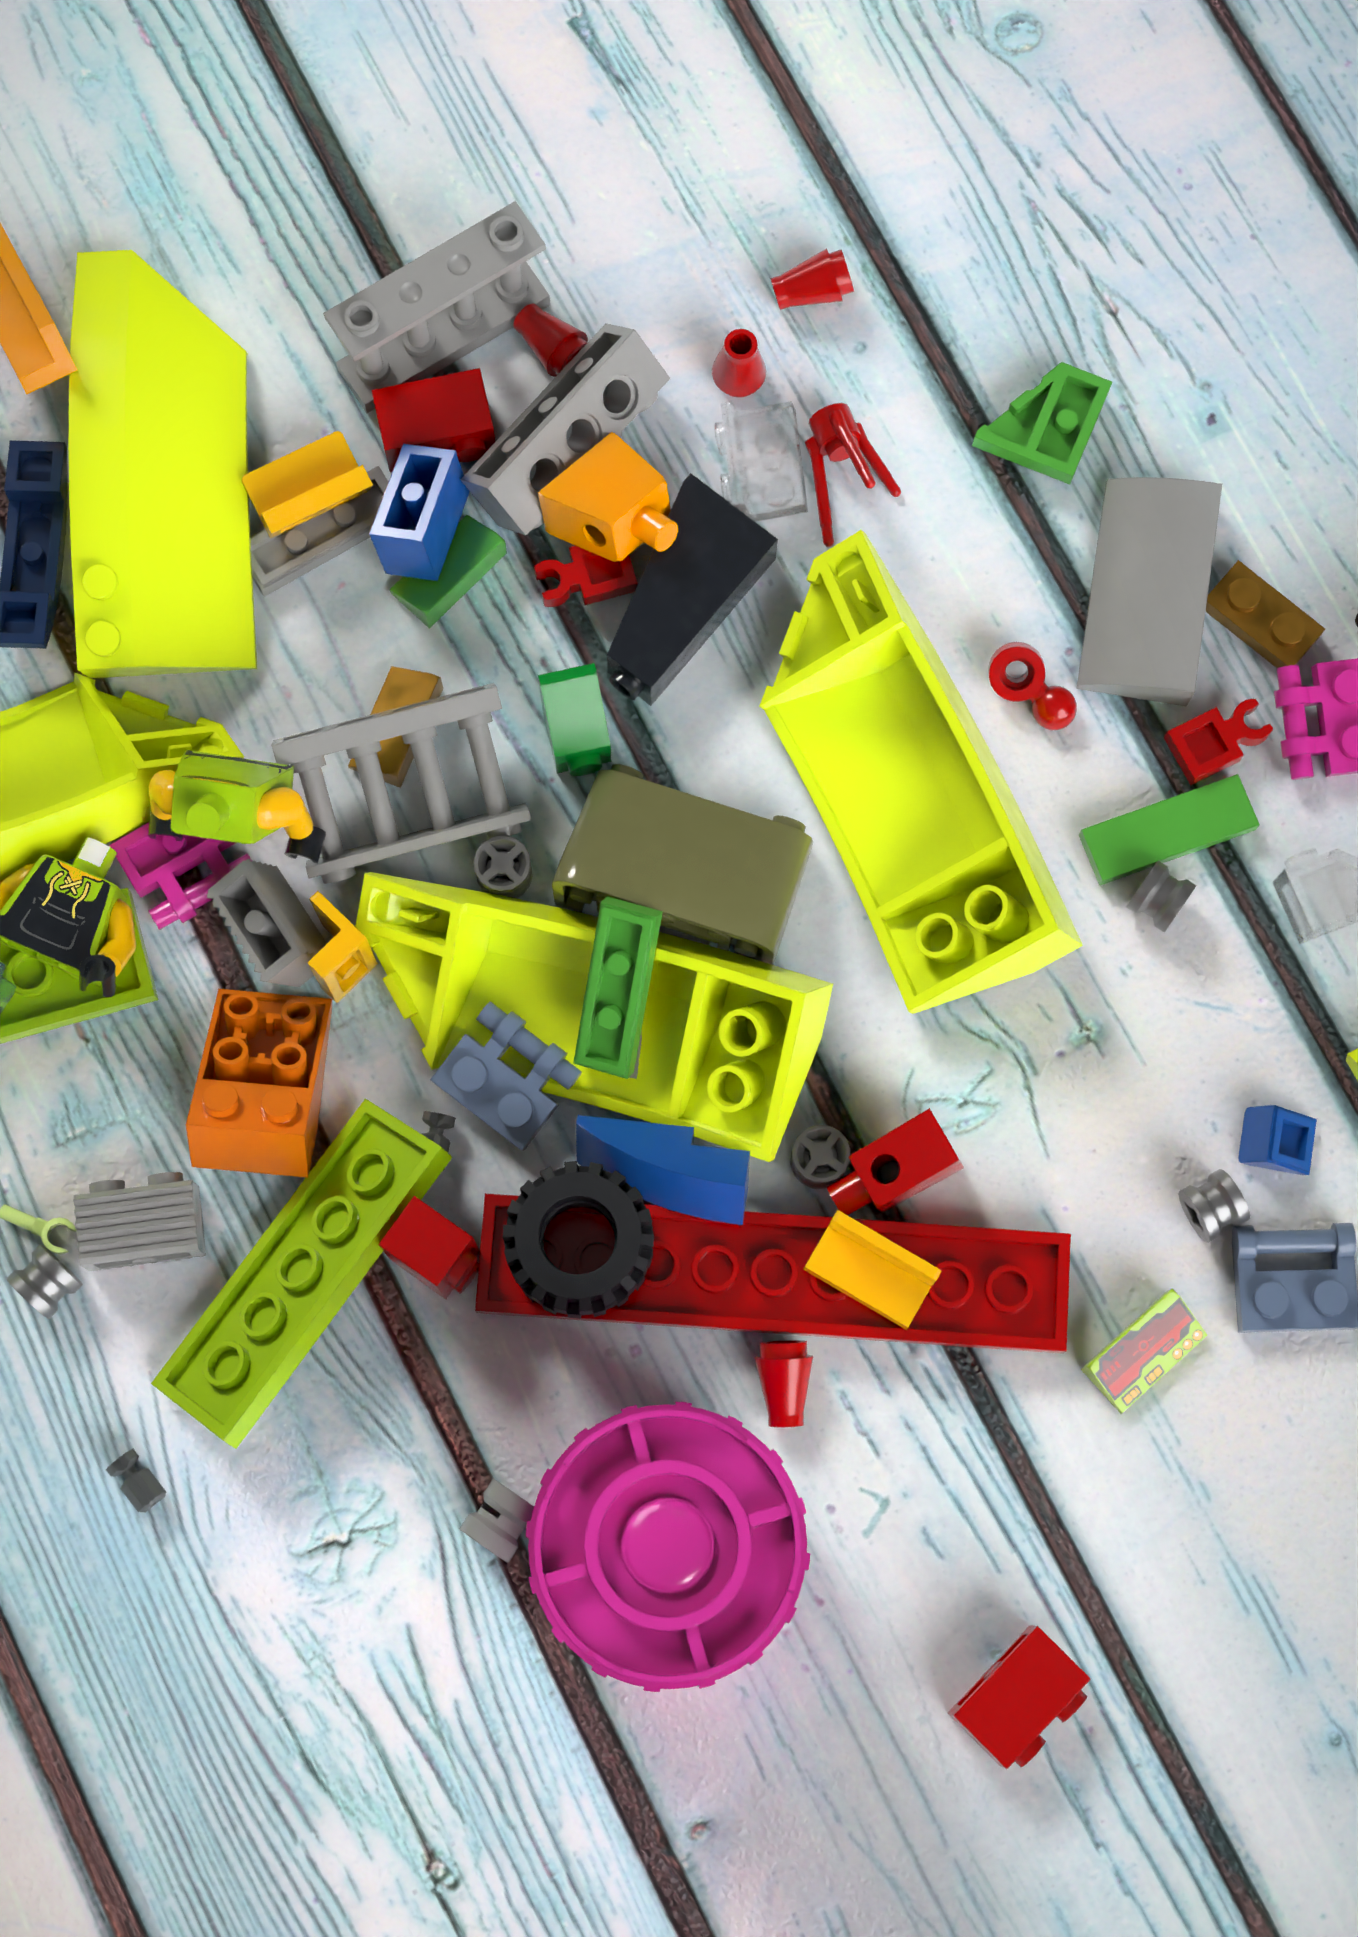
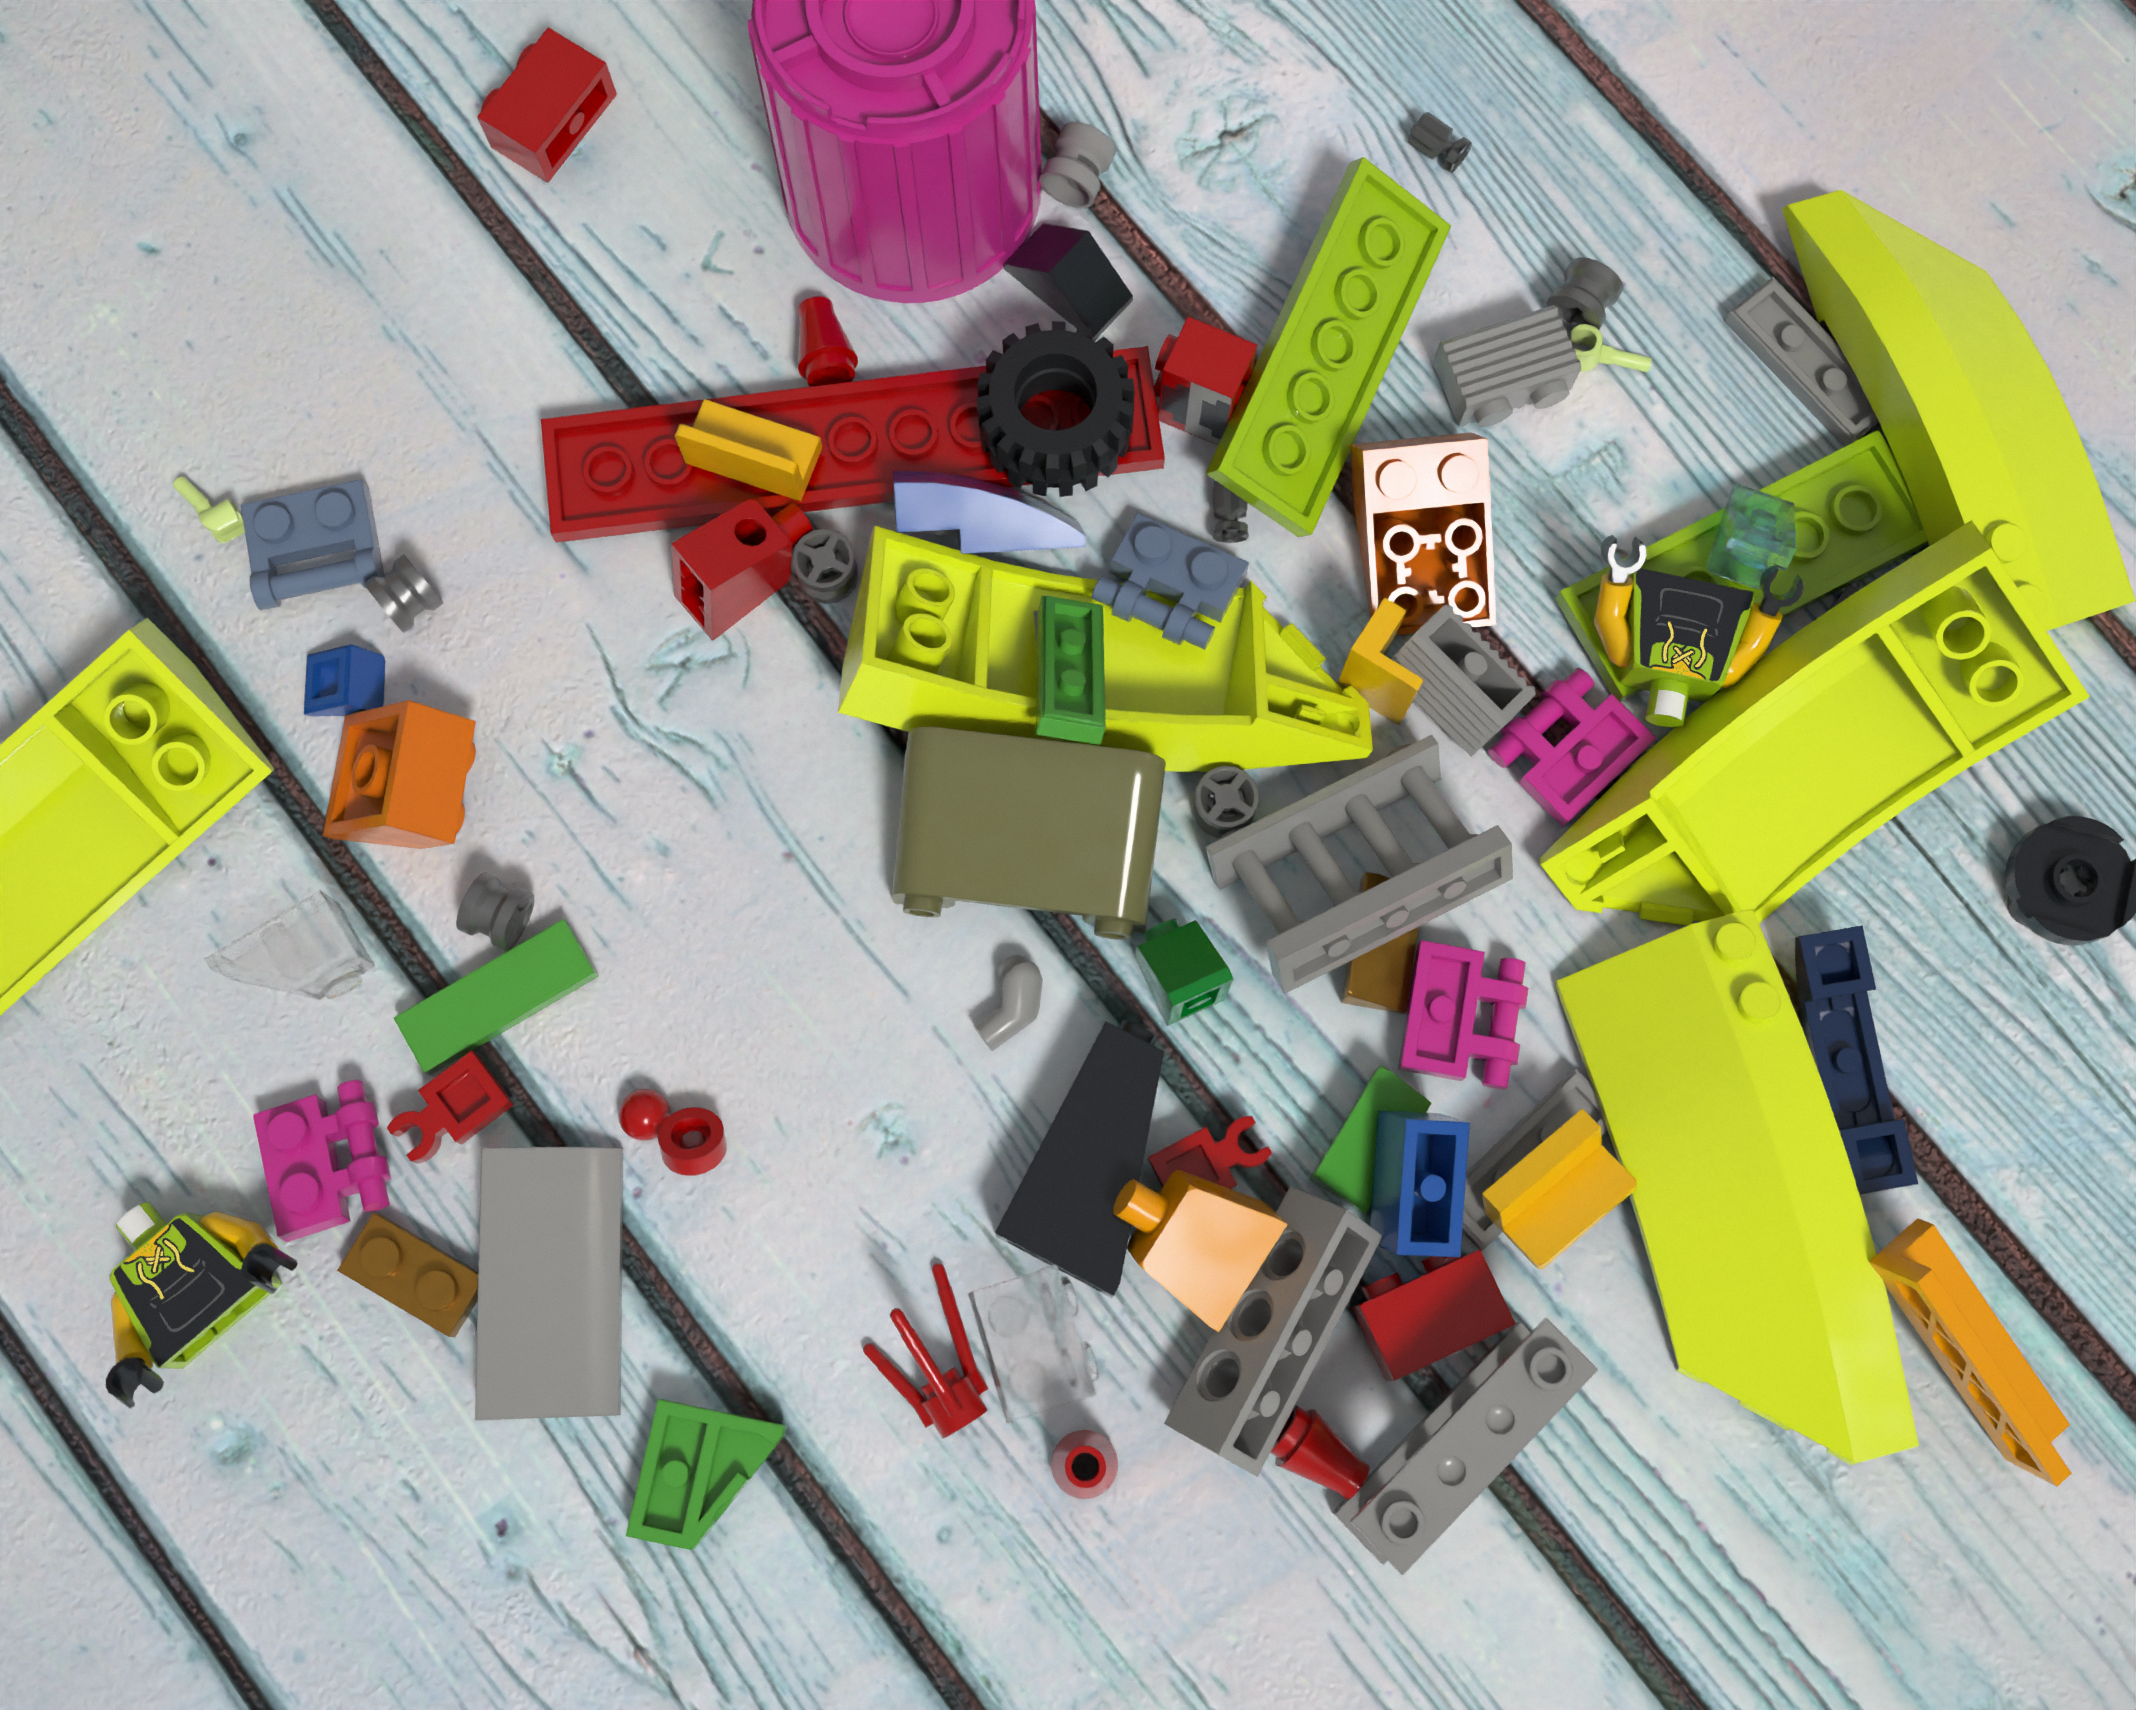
camera: 170 degrees right, 0 degrees up
(232, 803) = (1537, 764): lime torso -> none
(360, 655) = (1443, 1012): none -> dark pink plate
(532, 1406) = (1071, 276): none -> black slope
(720, 734) = (1018, 1004): none -> light grey arm
(814, 281) = (1014, 1602): red cone -> none
(910, 789) = (792, 979): neon yellow slope -> none
(1145, 1351) = (464, 446): slope -> none
(1234, 1031) = (401, 776): none -> orange slope

